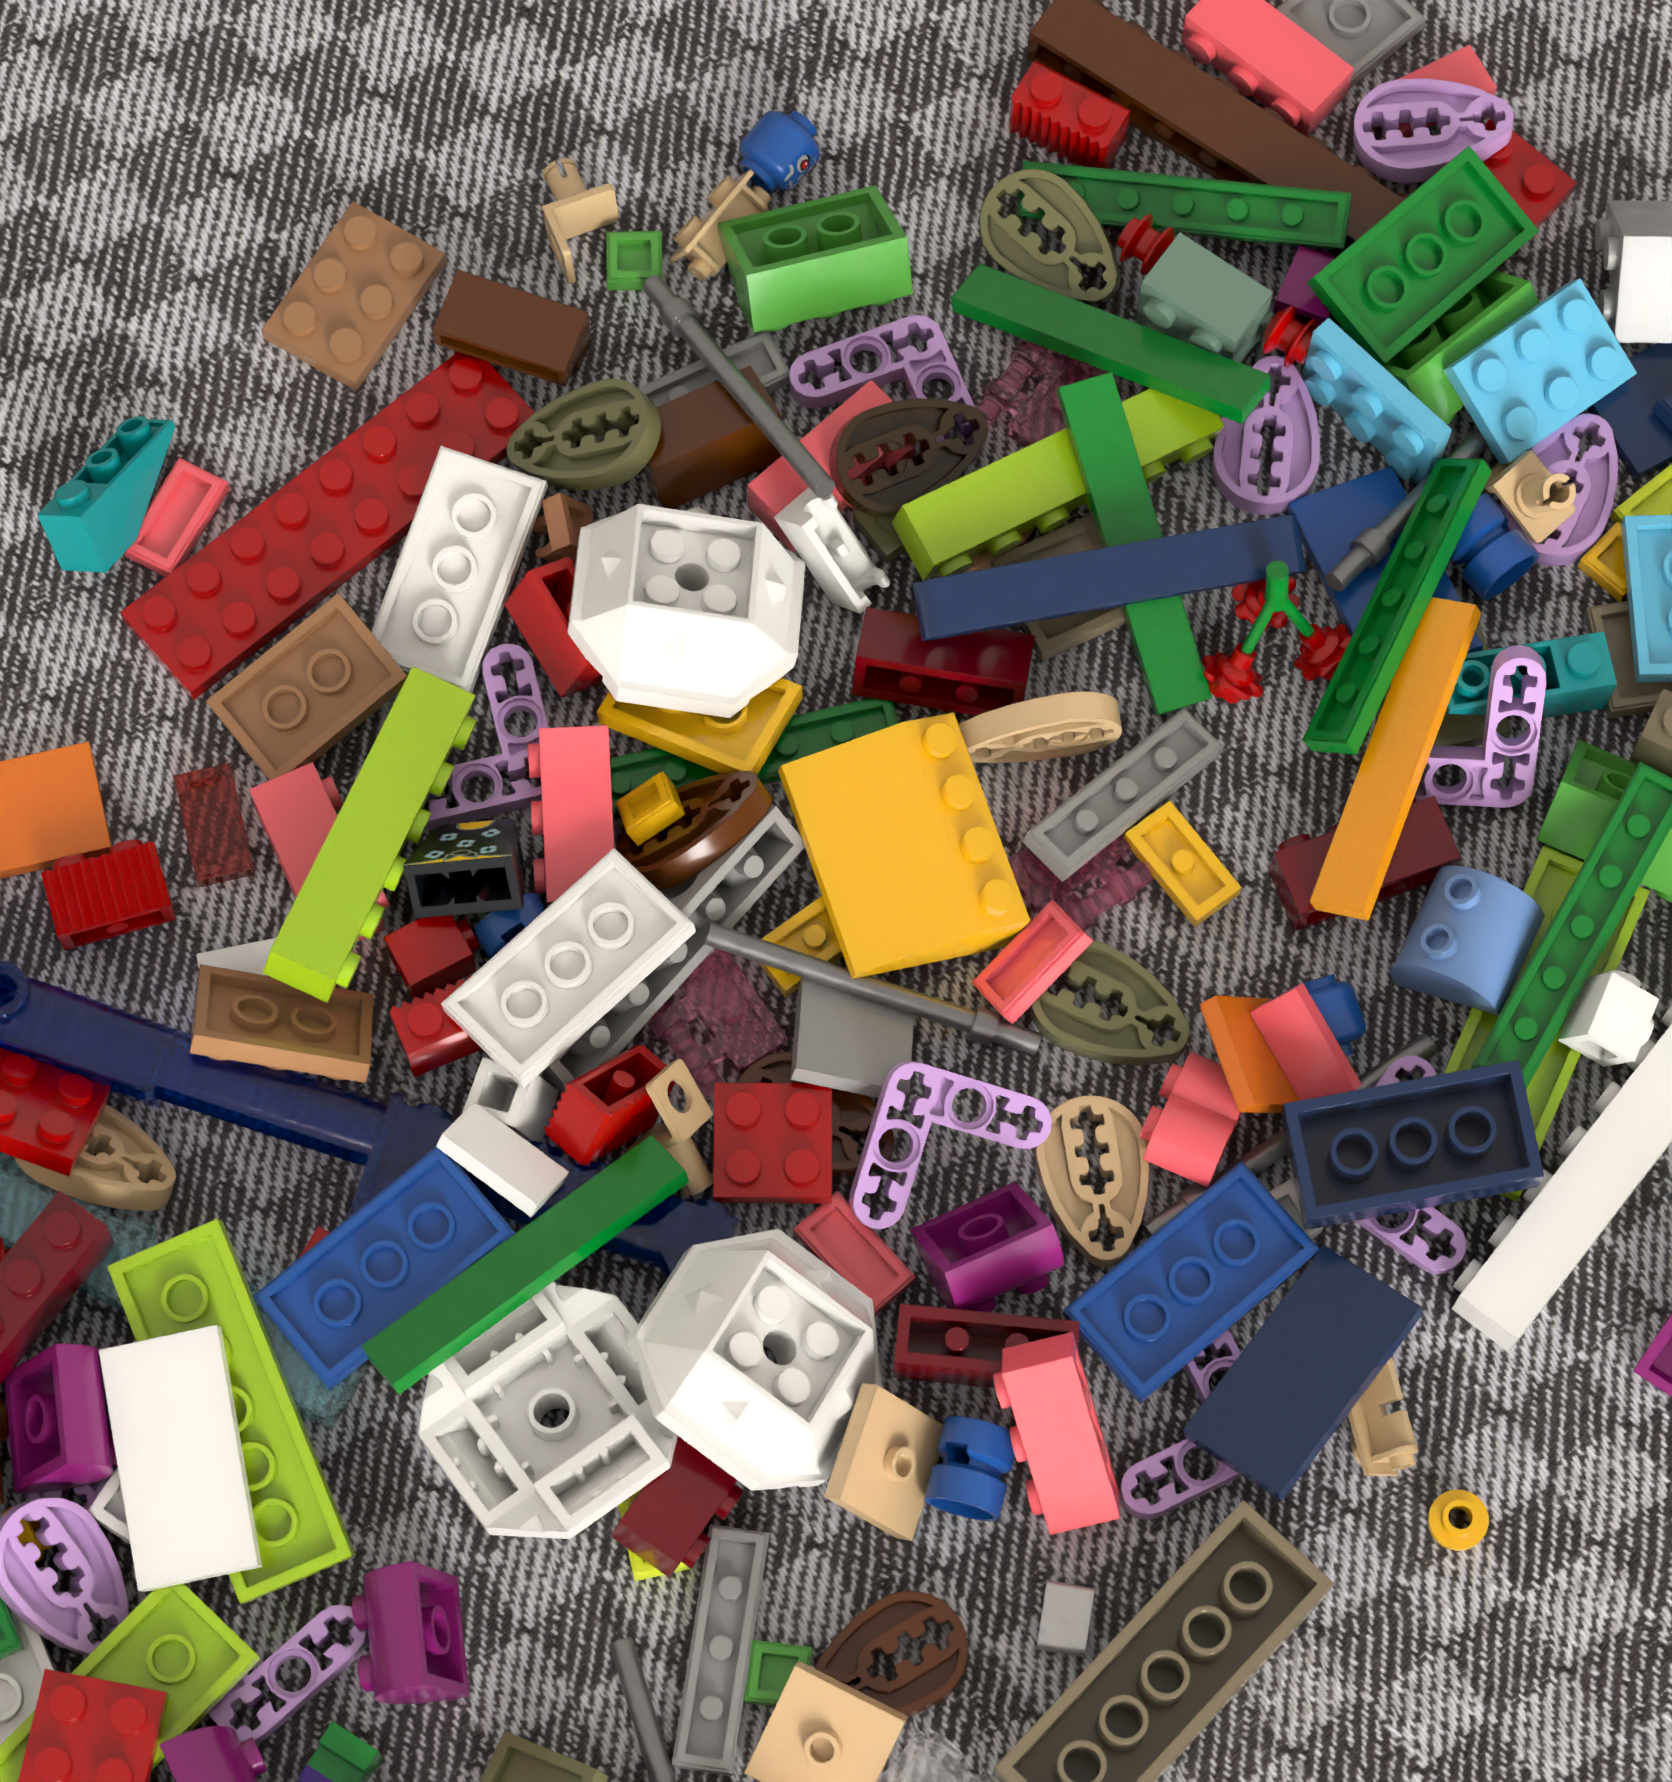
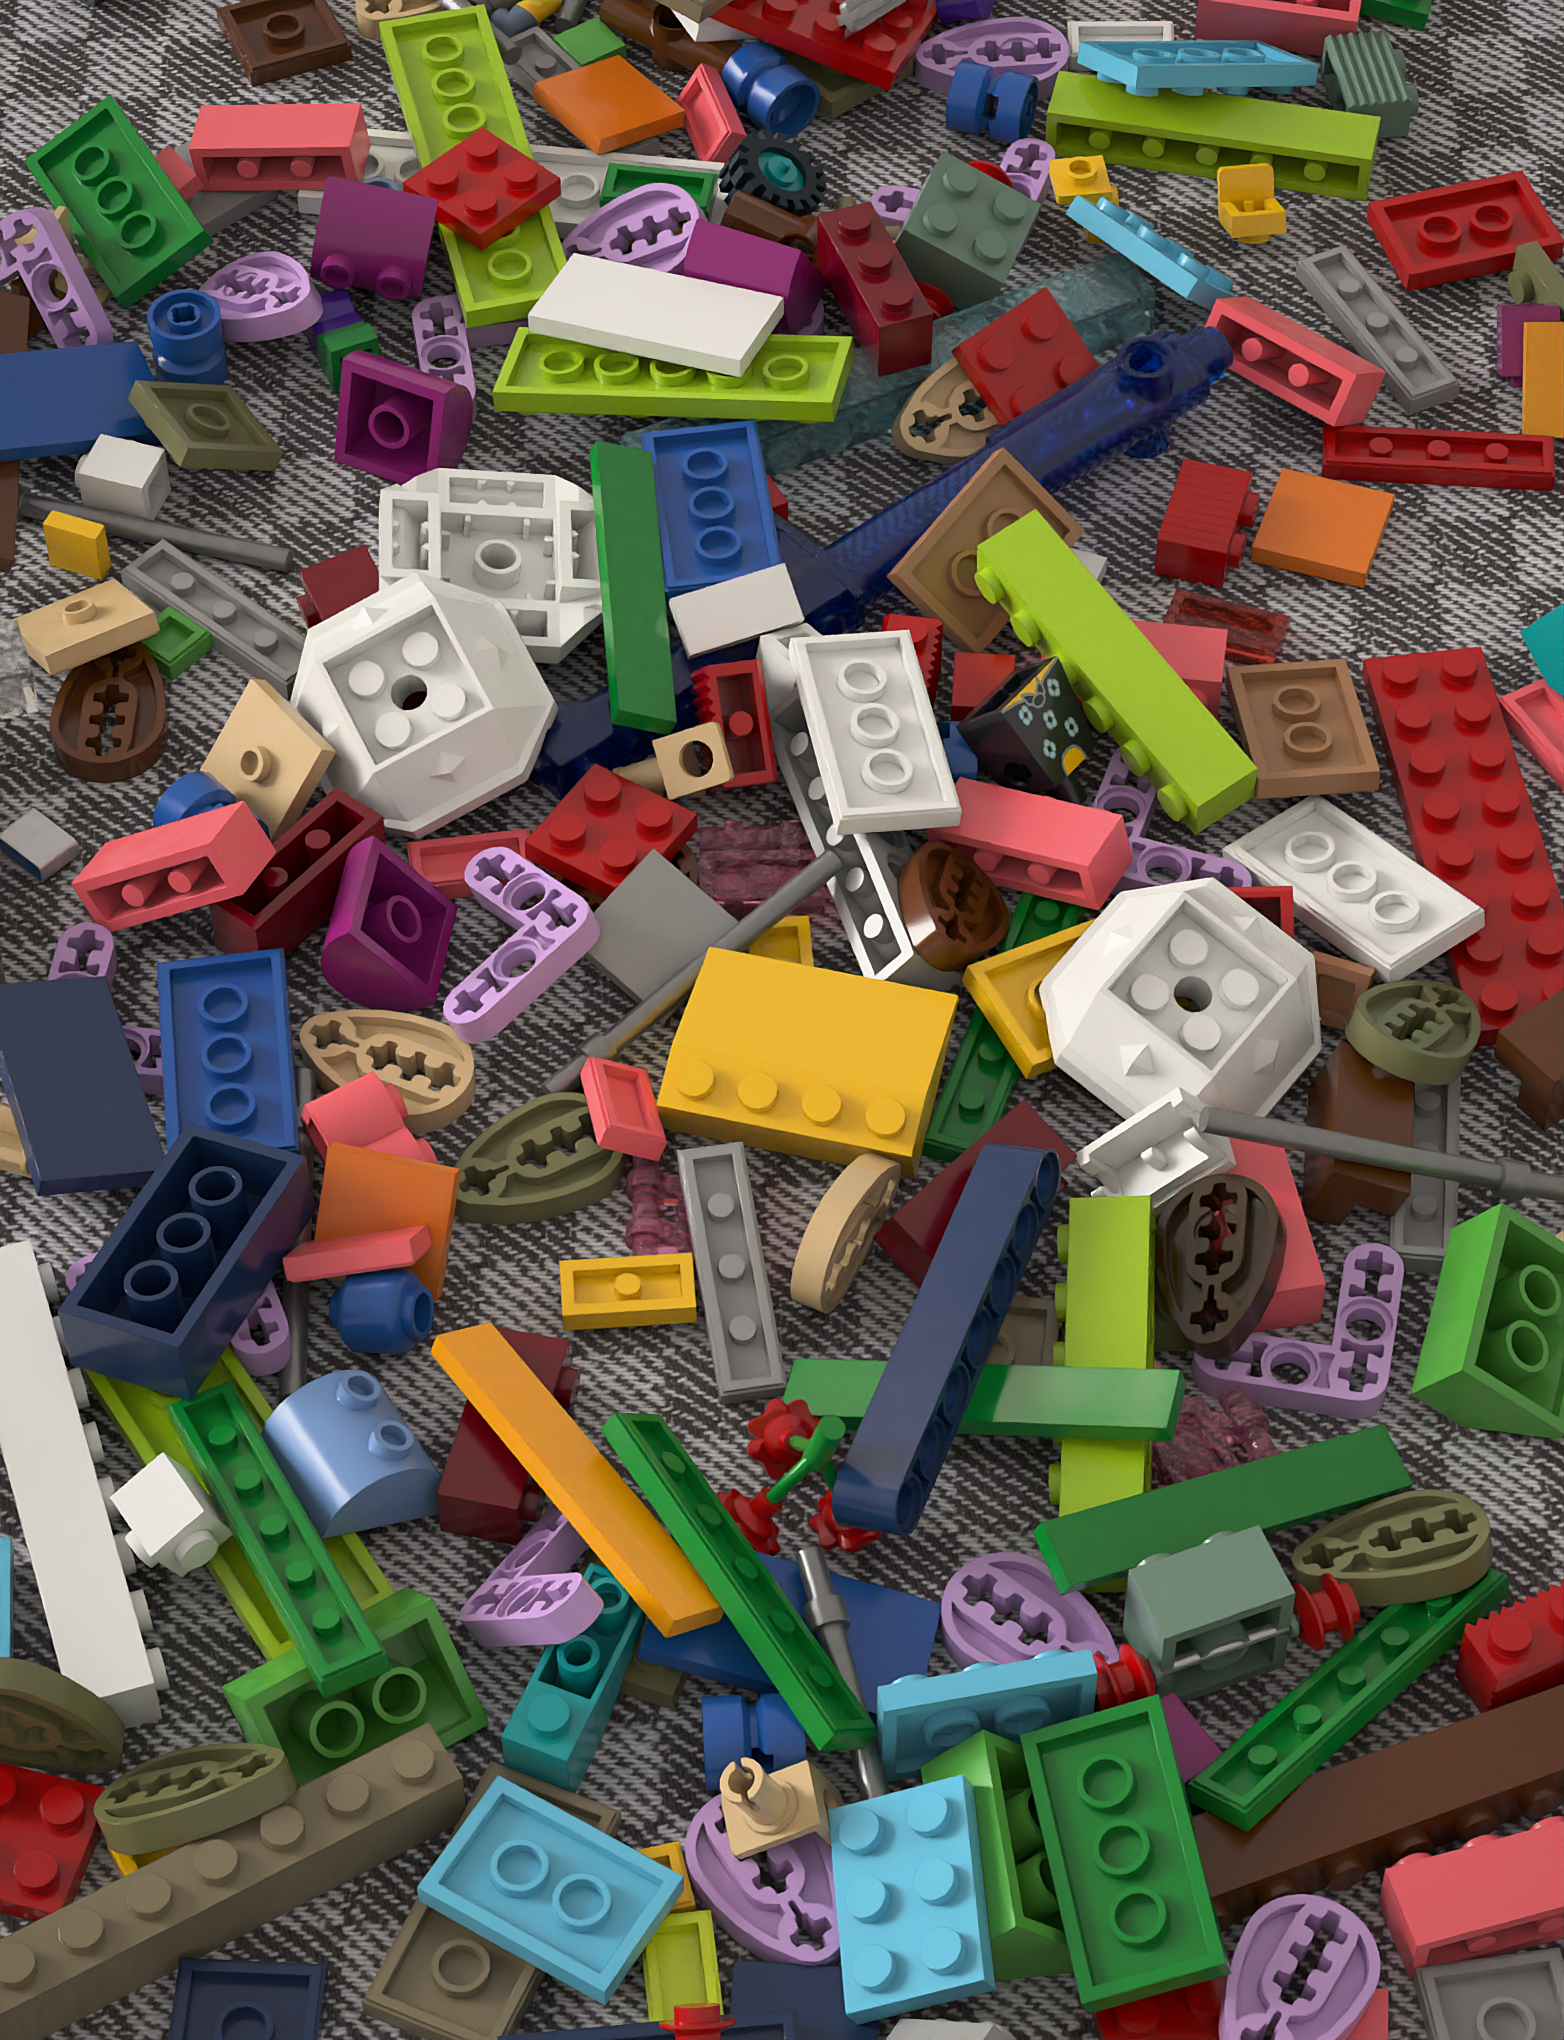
camera: 125 degrees right, 20 degrees down
(650, 808) = (996, 897): yellow tile -> none

